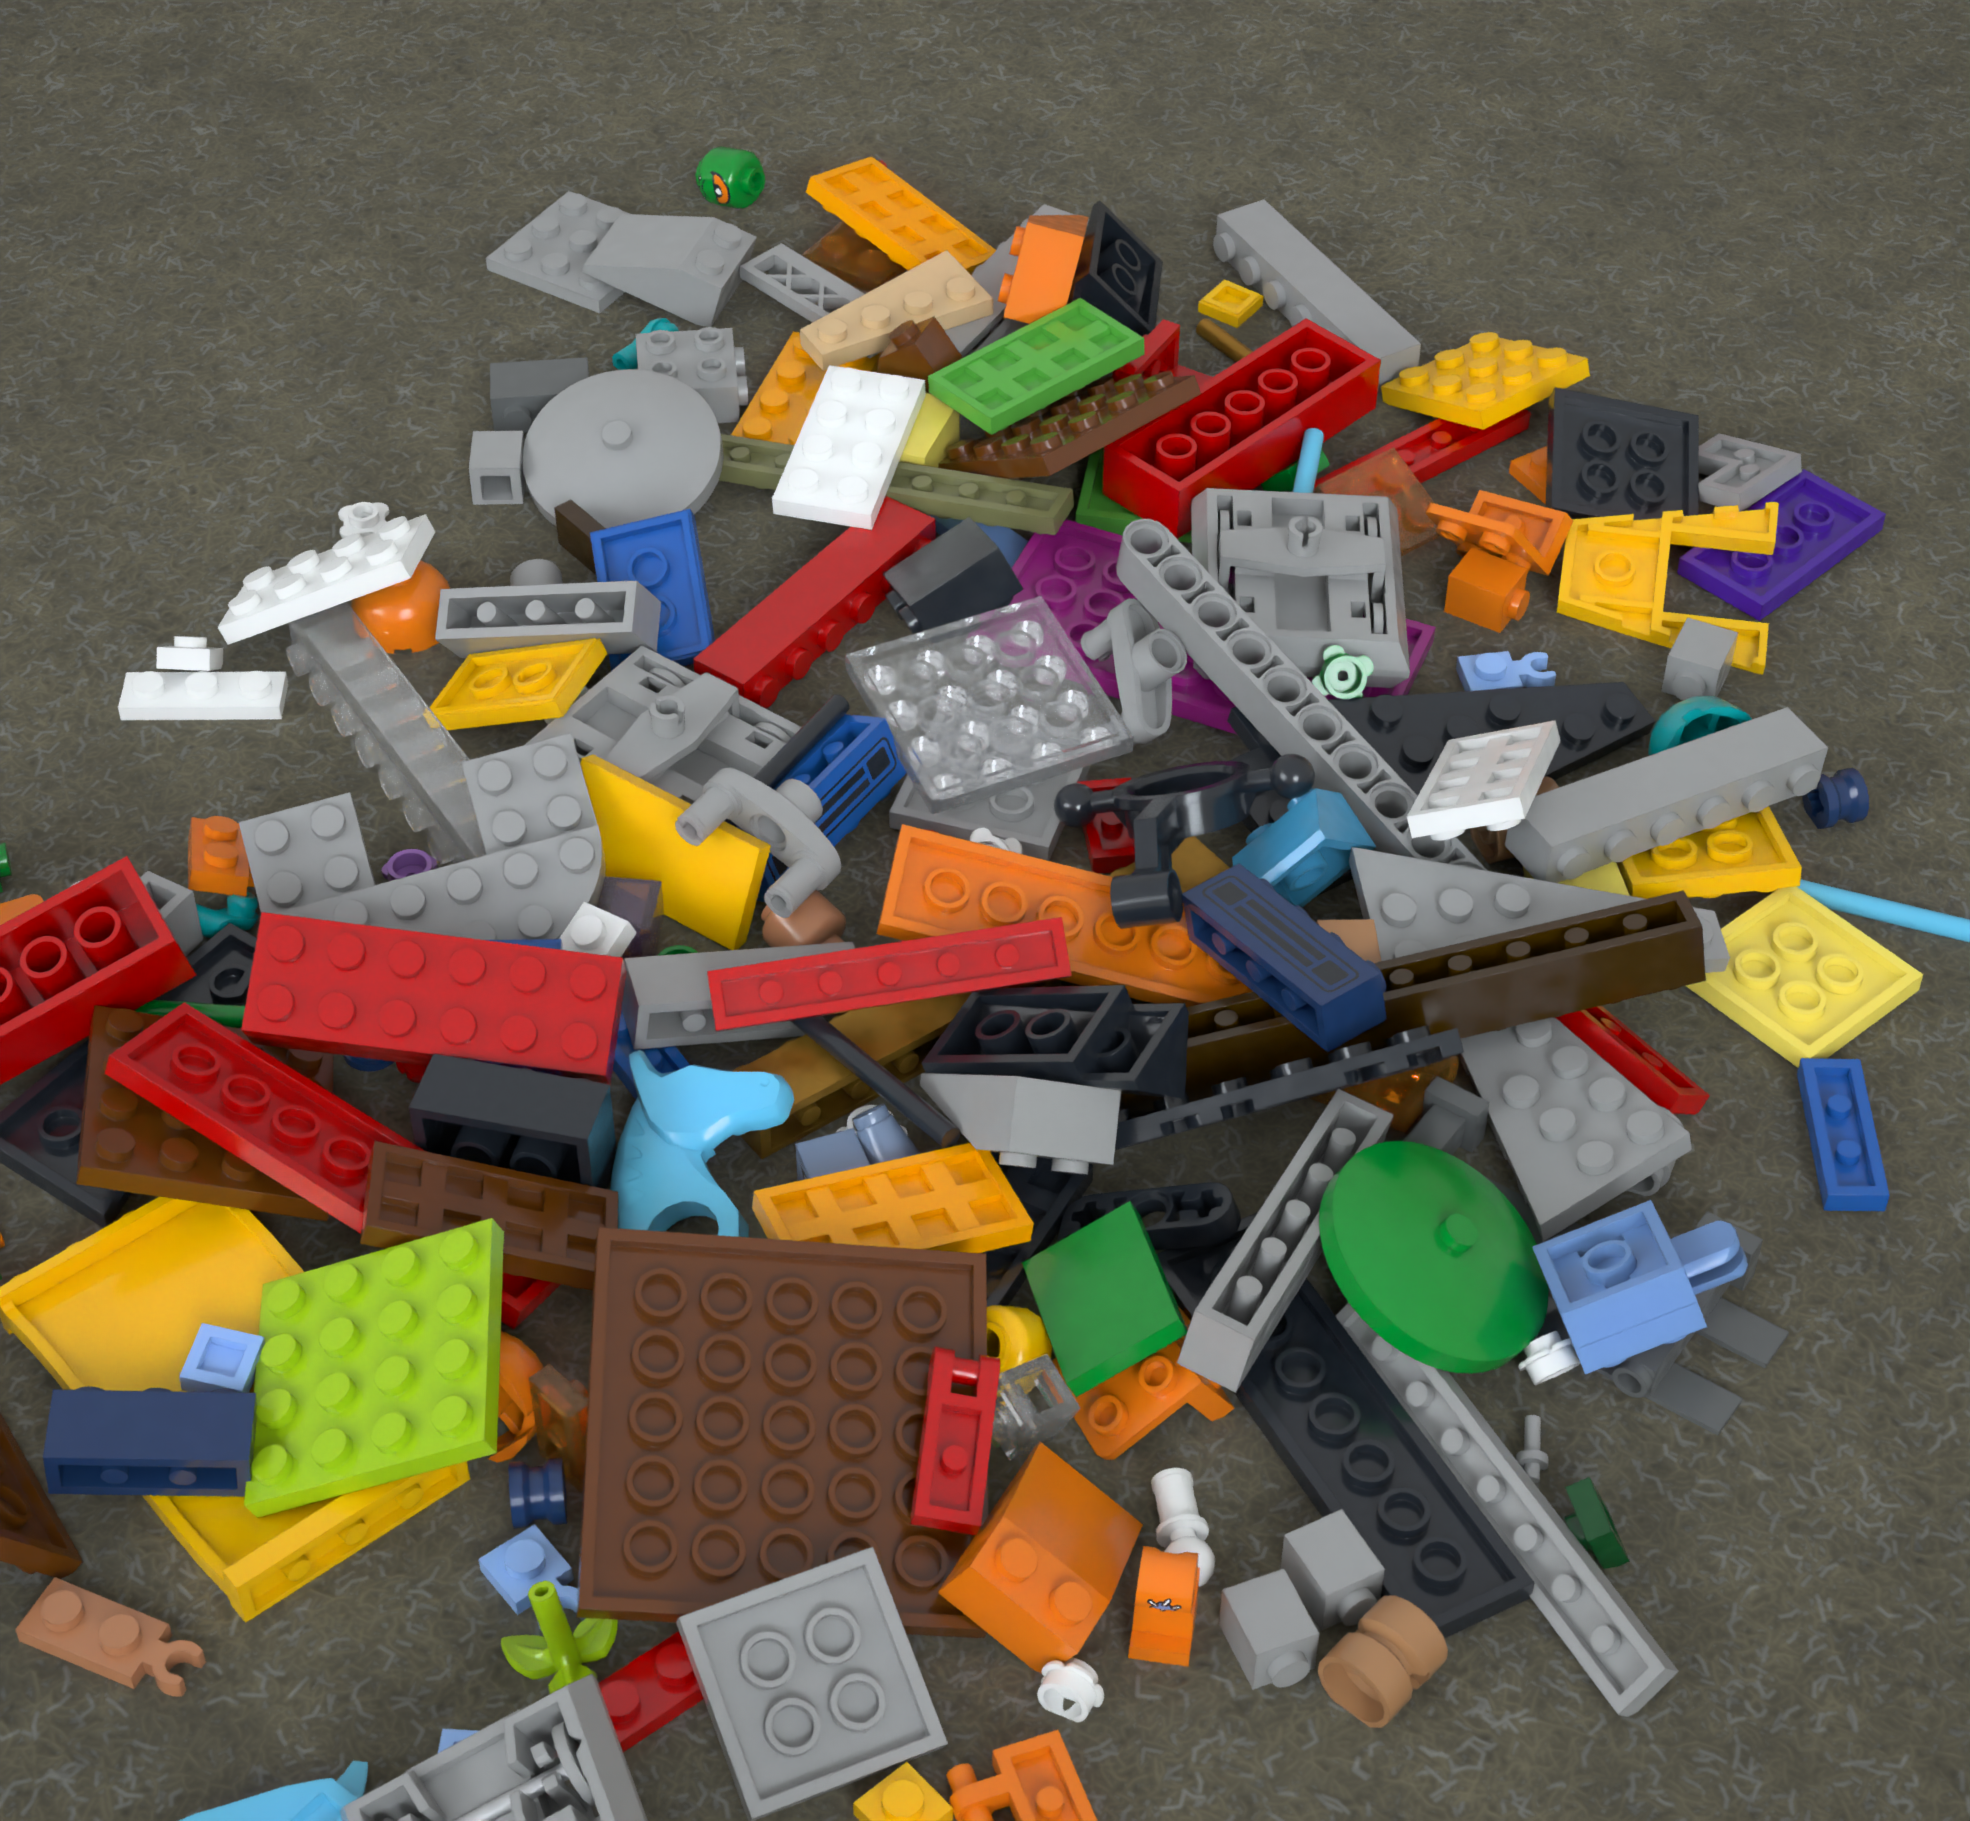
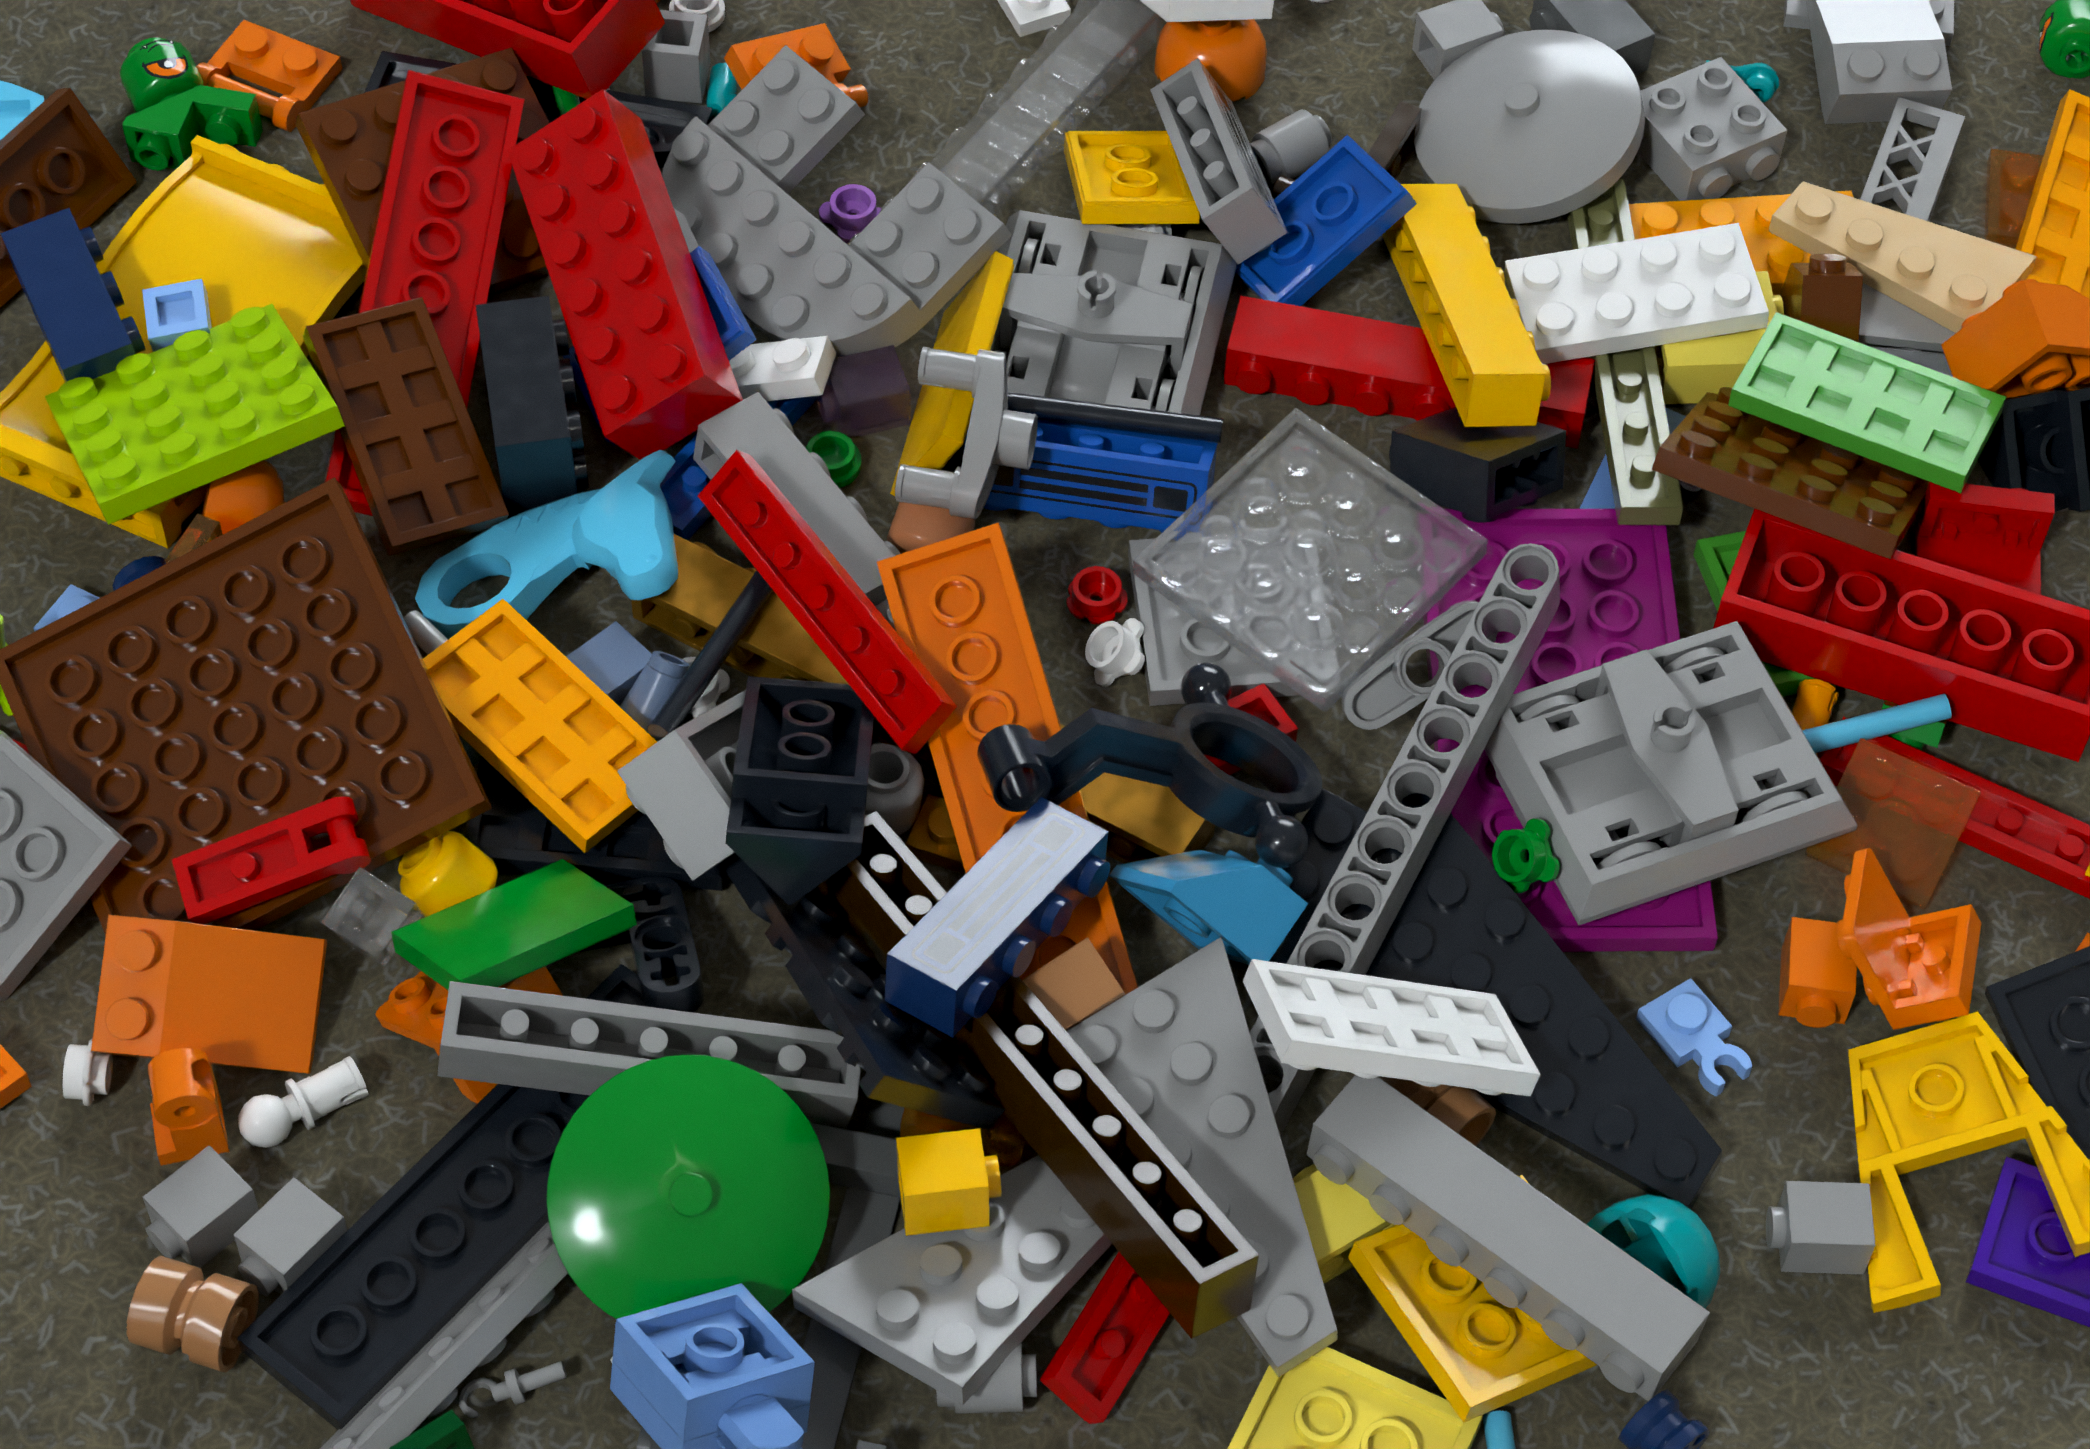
camera: 65 degrees right, 10 degrees up
(823, 531) = (1467, 310): none -> yellow brick
(1496, 1086) = (945, 1181): none -> yellow brick

